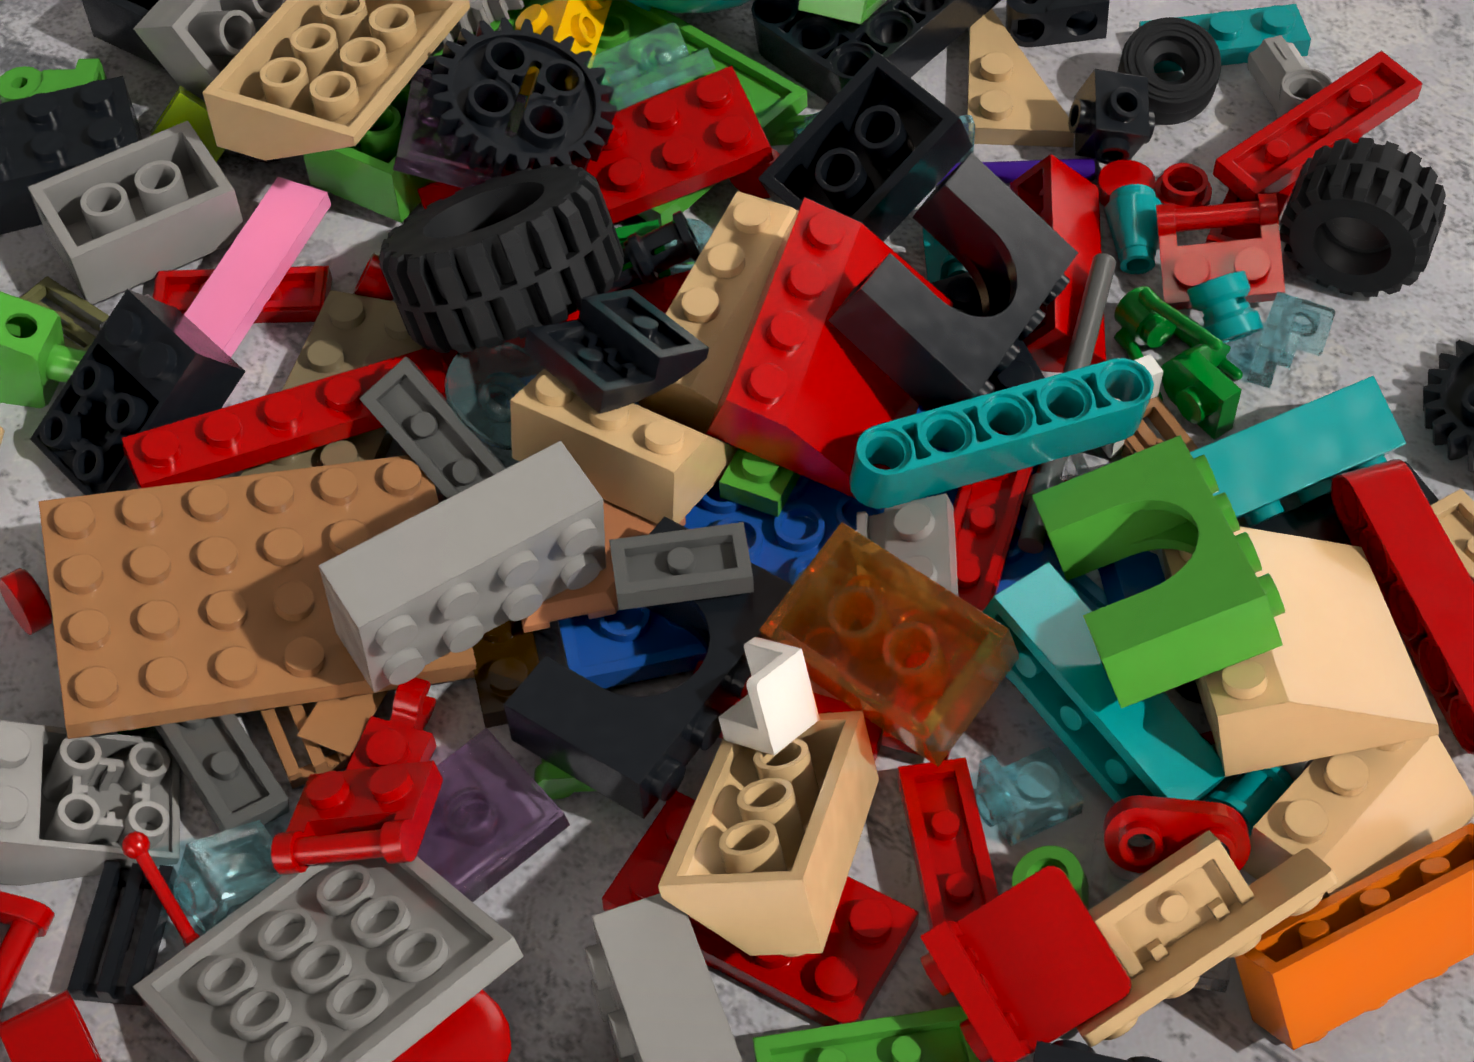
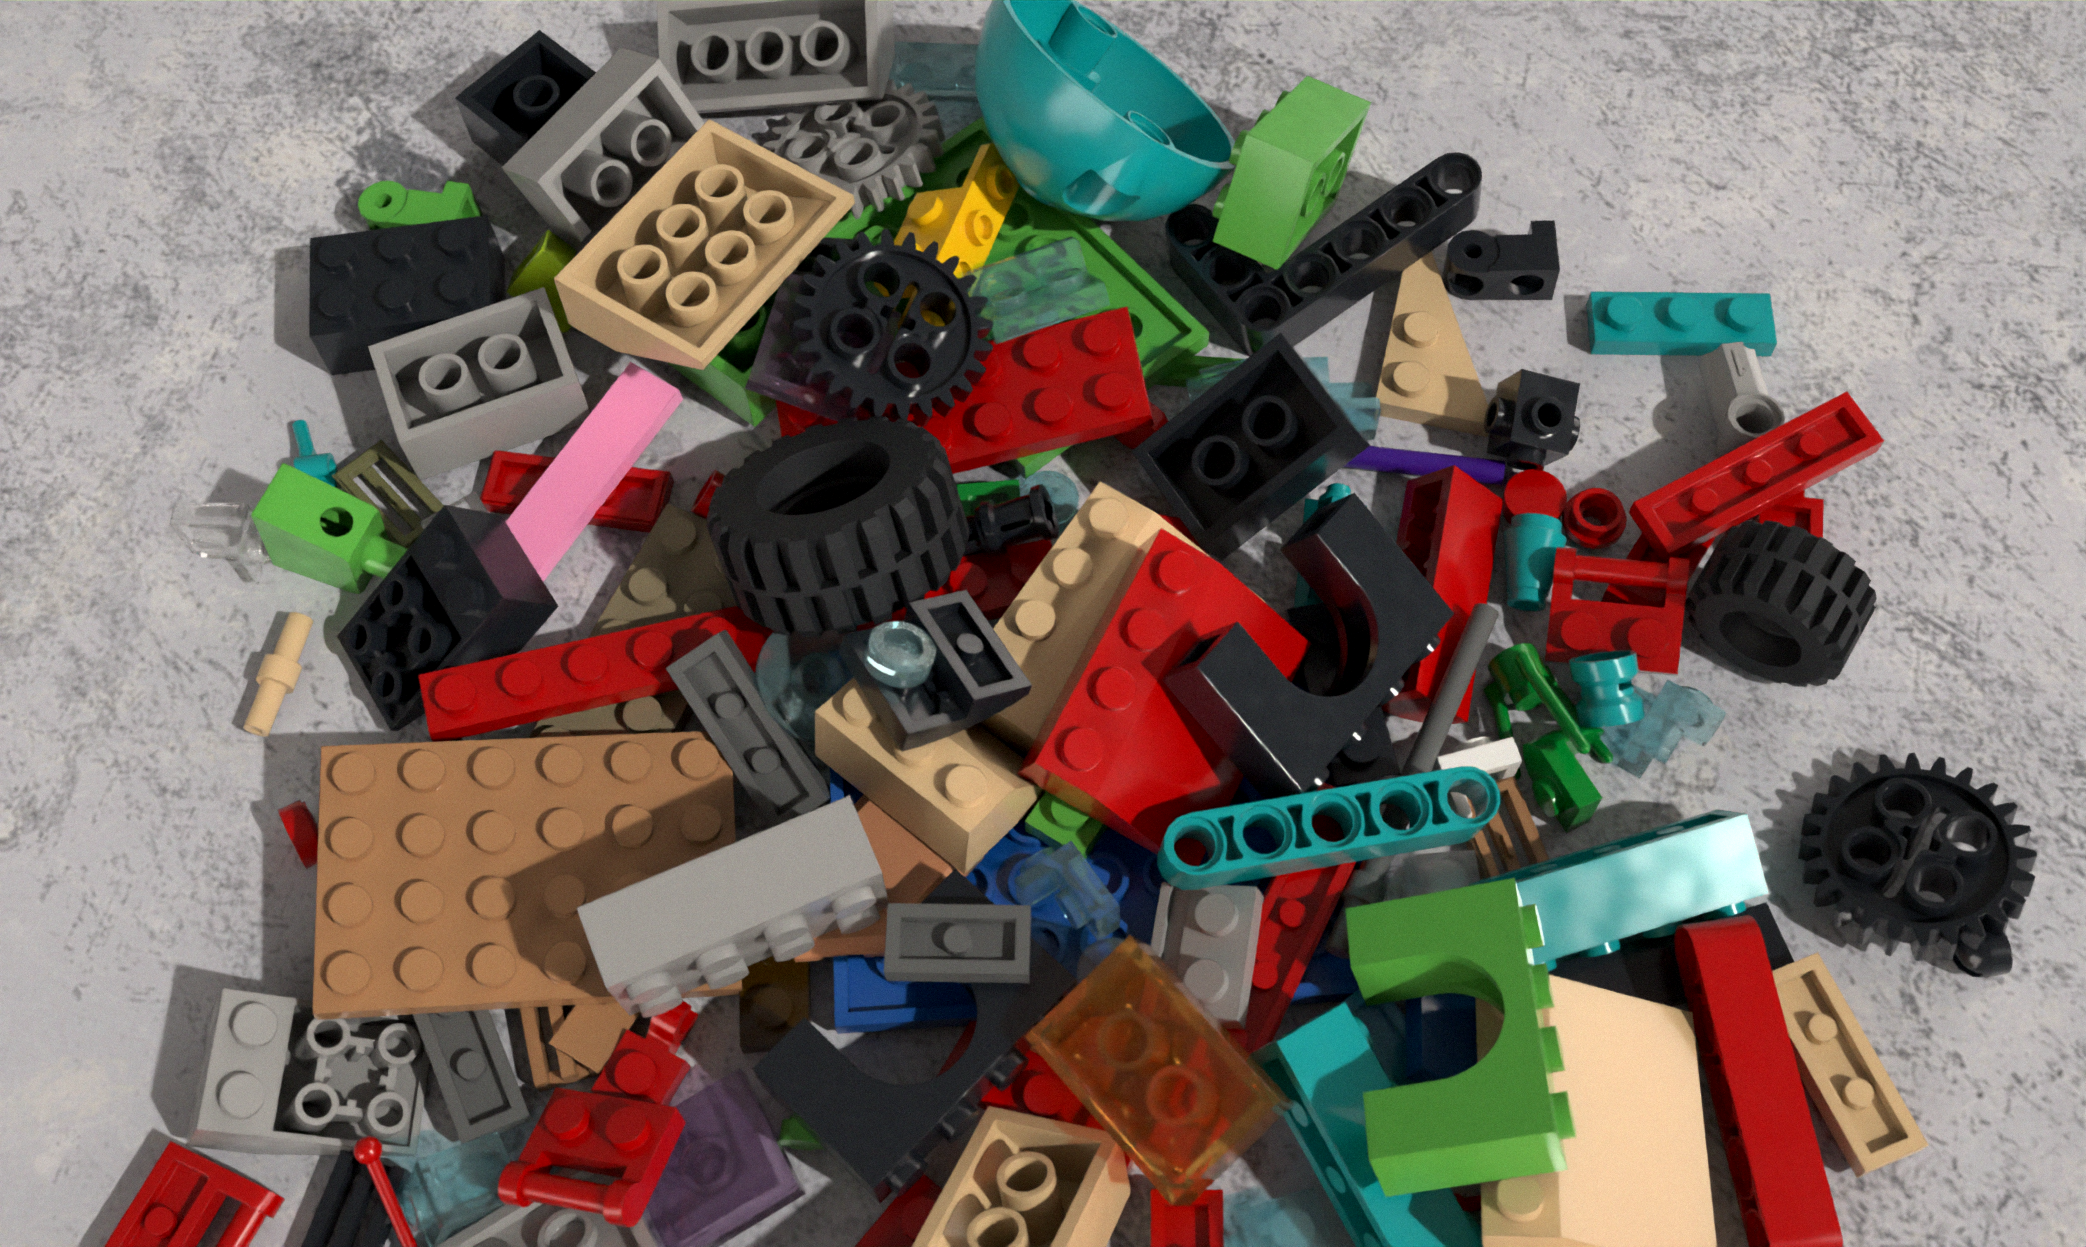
camera: 10 degrees right, 10 degrees up
(582, 335) = (899, 654): none -> clear light blue tile
(778, 699) = (1030, 1115): white panel -> none
(780, 523) = (1081, 893): none -> clear light blue bracket
(1188, 47) = (1631, 339): black tyre -> none

